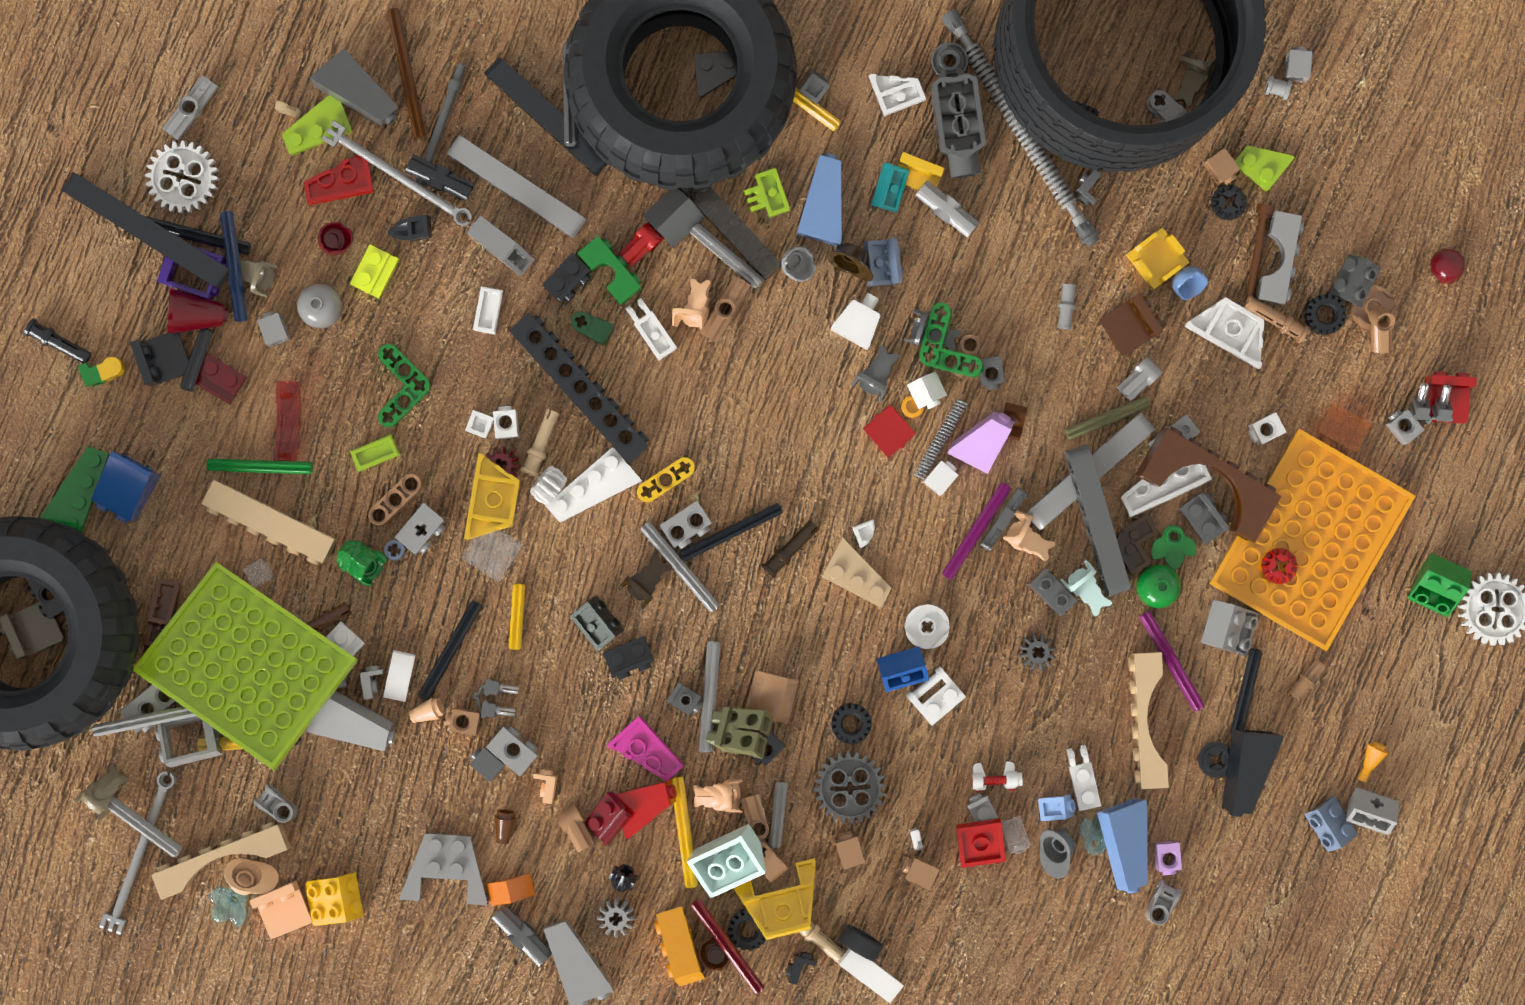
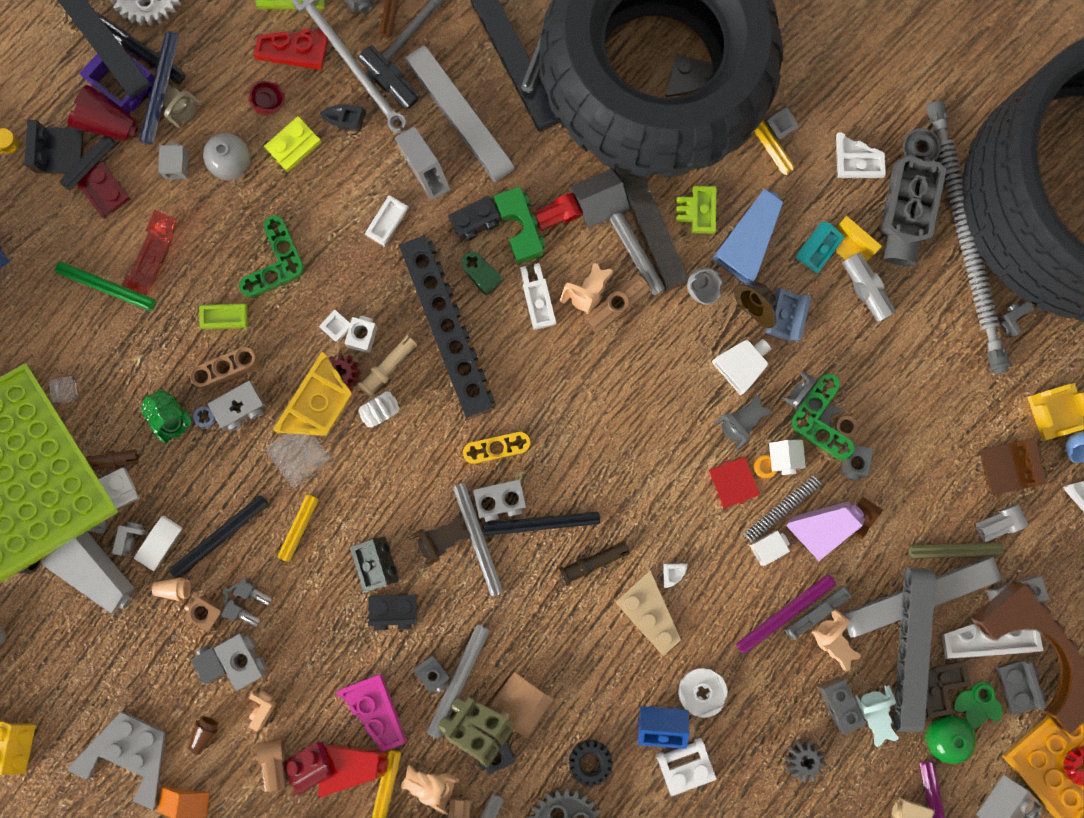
camera: 15 degrees right, 5 degrees down
(269, 522) = (93, 344): tan brick -> none
(600, 481) = (428, 426): white wing -> none
(1066, 306) = (953, 425): light grey pin -> none

